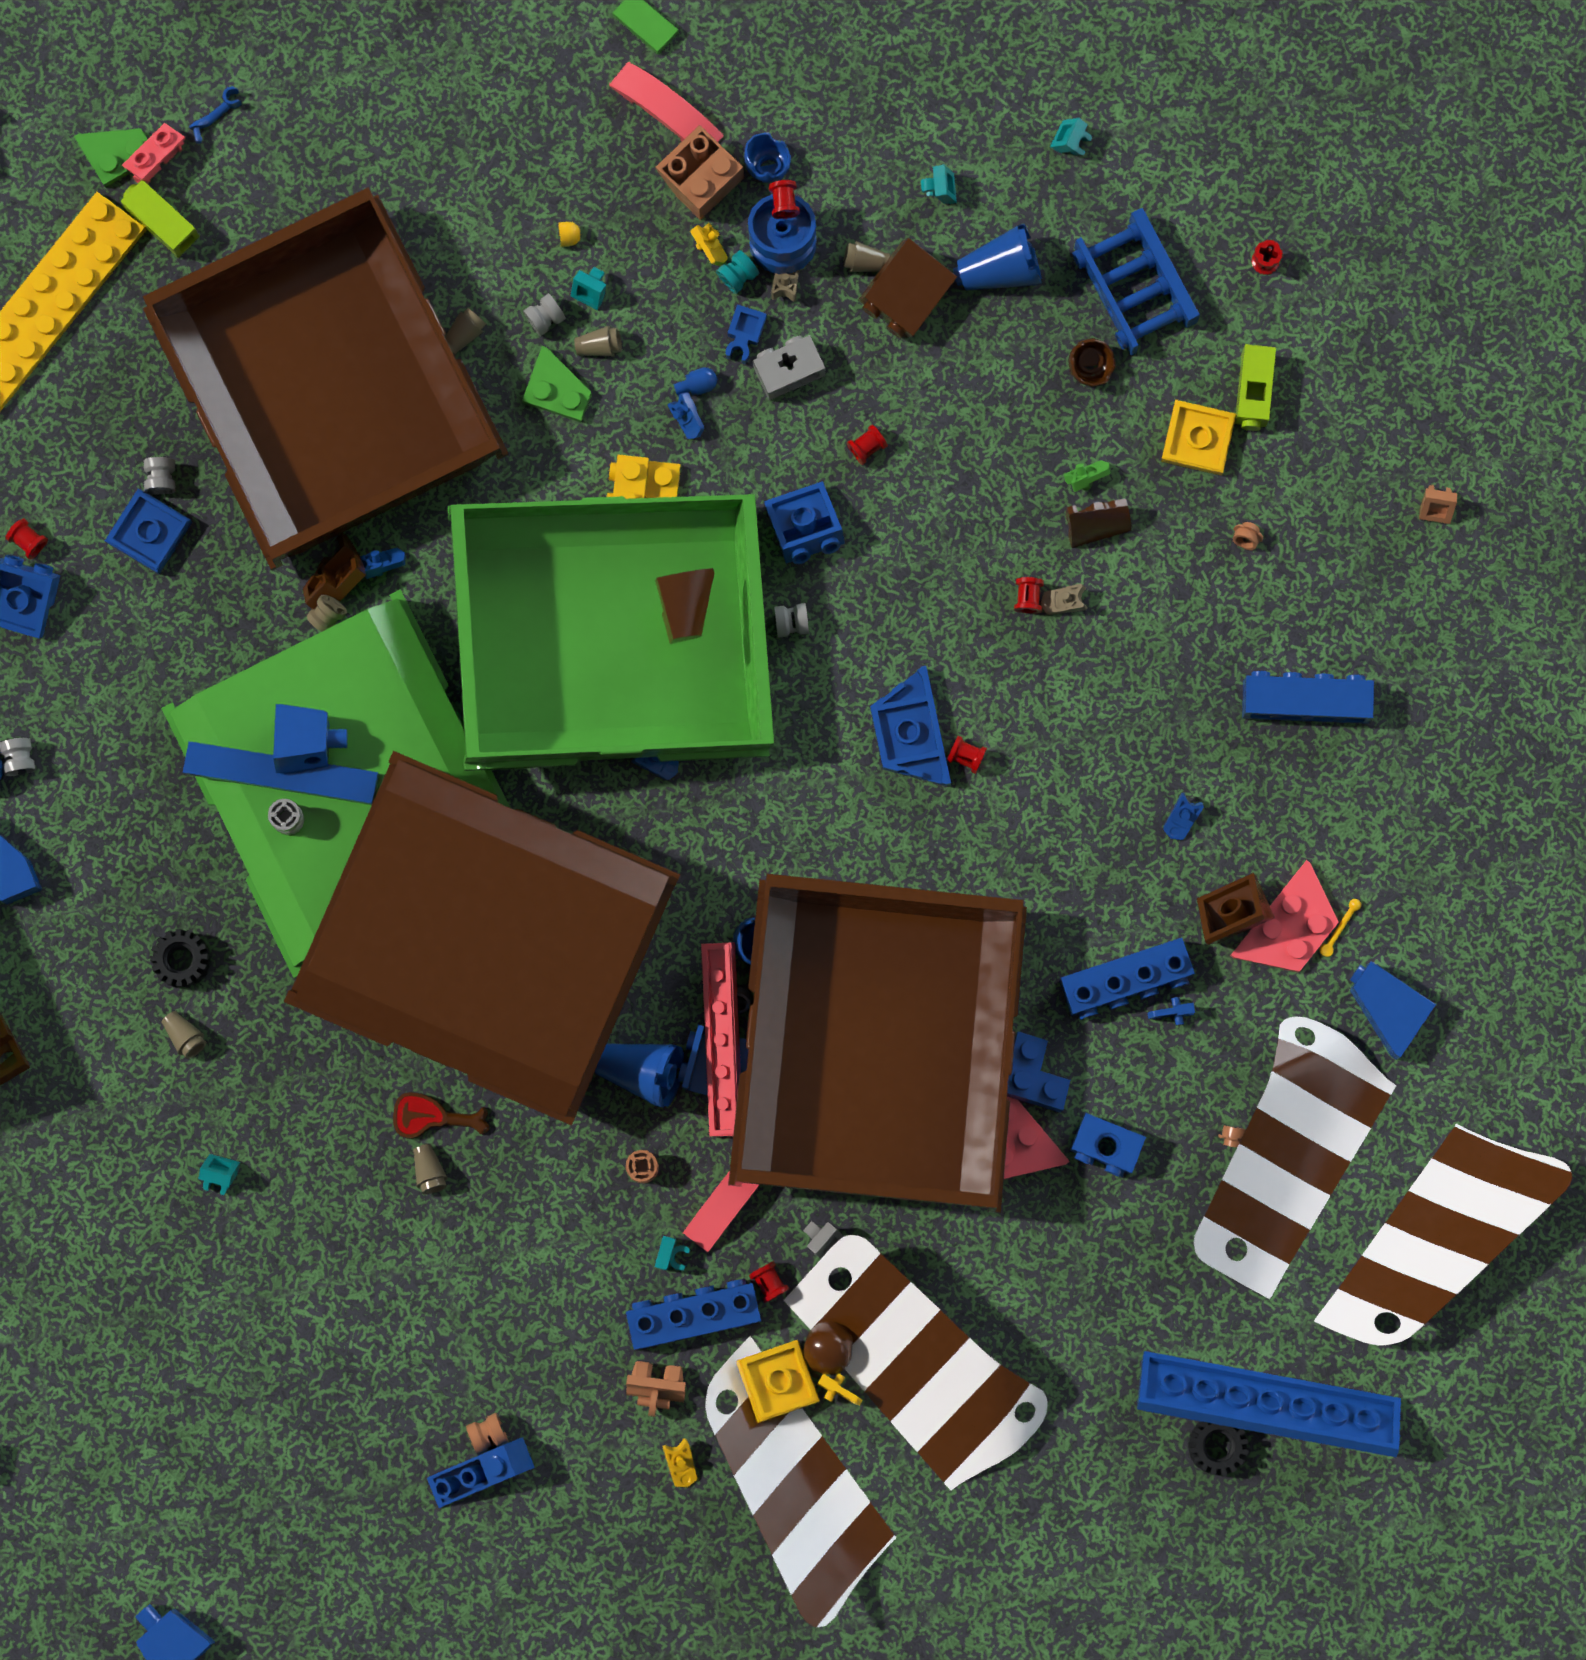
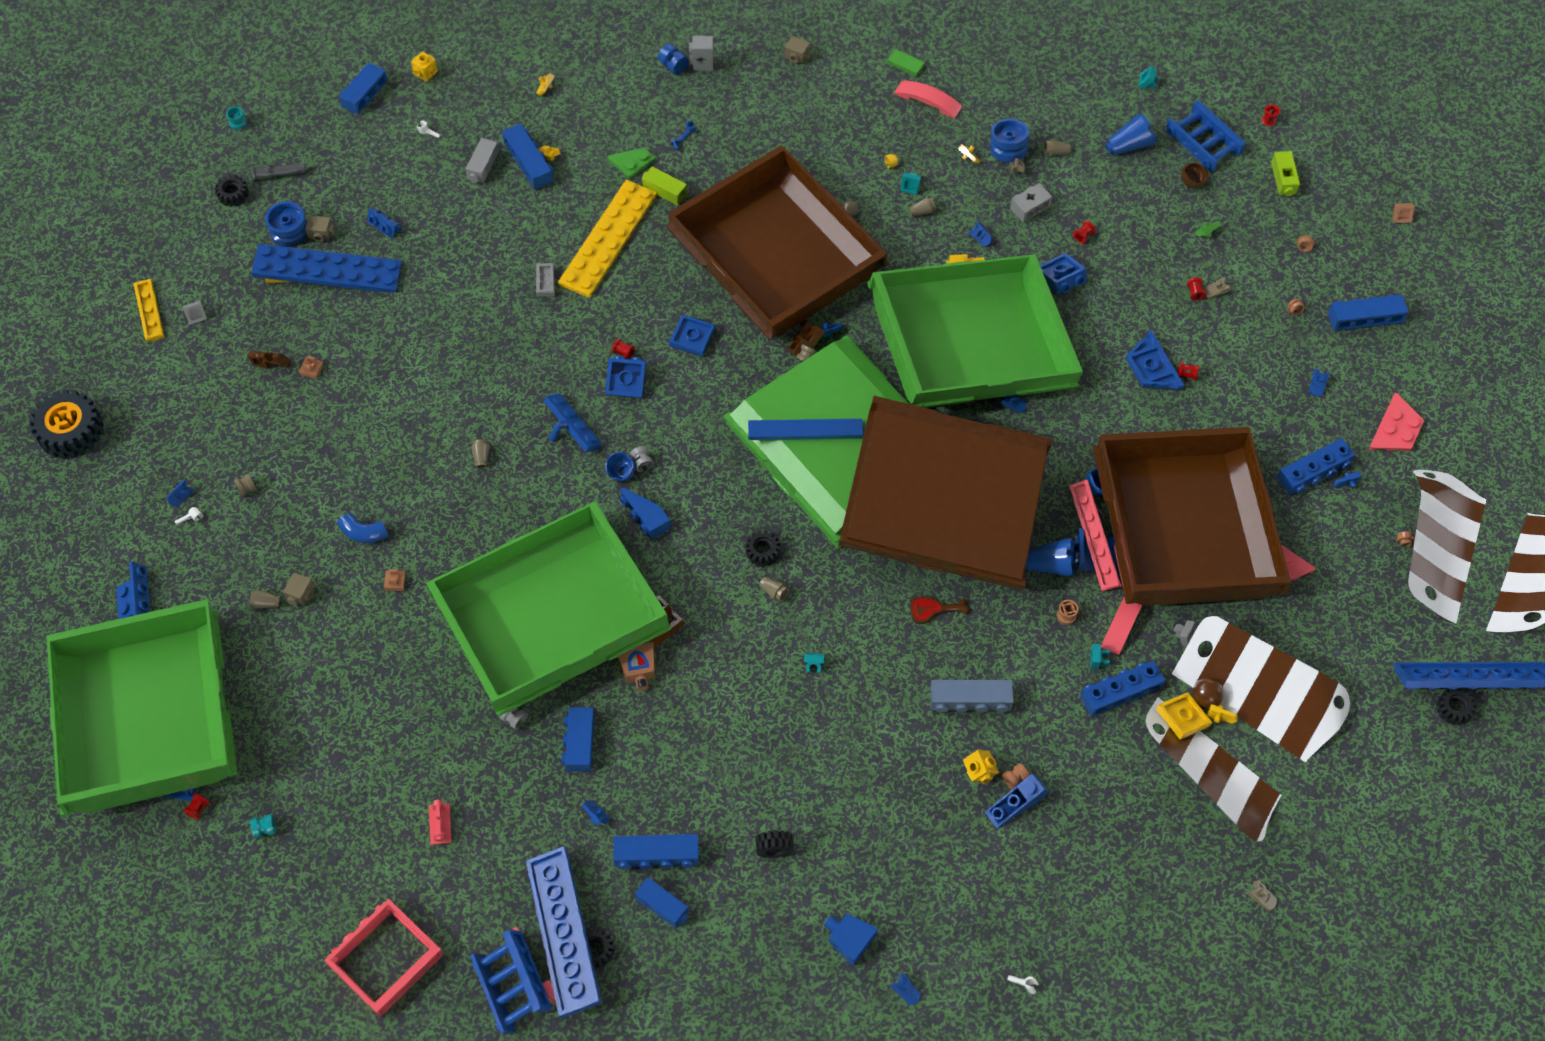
camera: 15 degrees left, 20 degrees down
(85, 1477) = (774, 844): none -> black tyre
(157, 149) = (655, 155): coral hinge -> none
(159, 478) = (692, 305): light grey wheel -> none
(290, 820) = (815, 448): light grey wheel -> none
(304, 738) = (816, 405): blue torso -> none
(428, 1170) = (940, 637): dark tan cone -> none
(434, 1408) = (981, 766): none -> yellow brick
(449, 1284) = (971, 695): none -> sand blue brick
(542, 316) = (890, 197): light grey wheel -> none
(556, 388) = (904, 233): bright green wing -> none
(656, 1392) = (1111, 733): nougat hips -> none
(680, 1464) = (1139, 774): yellow piece -> none
(685, 602) = (1015, 306): reddish brown slope -> none
(697, 382) = (984, 217): blue cylinder -> none
(700, 172) = (956, 120): nougat slope -> none
(737, 272) = (989, 163): teal wheel -> none
(745, 329) = (1001, 190): blue plate -> none
(763, 148) = (987, 107): blue hair -> none
(769, 1282) = (1167, 664): red bush -> none
(784, 199) = (1009, 118): red bush -> none
(784, 620) = (1071, 320): light grey wheel -> none
(906, 289) = (1084, 155): reddish brown brick -> none
(940, 186) = (1085, 109): teal tile -> none
(1027, 1079) = (1287, 532): blue plate -> none
(1097, 521) = (1222, 246): reddish brown slope -> none
(1127, 1145) = (1344, 550): blue brick -> none
(1190, 657) = (1296, 304): none -> nougat plate
(1198, 437) = (1263, 202): yellow plate -> none
(1233, 909) = (1365, 421): reddish brown slope -> none
(1327, 949) = (1422, 436): yellow hinge -> none
(1389, 1006) = (1469, 456): blue slope -> none

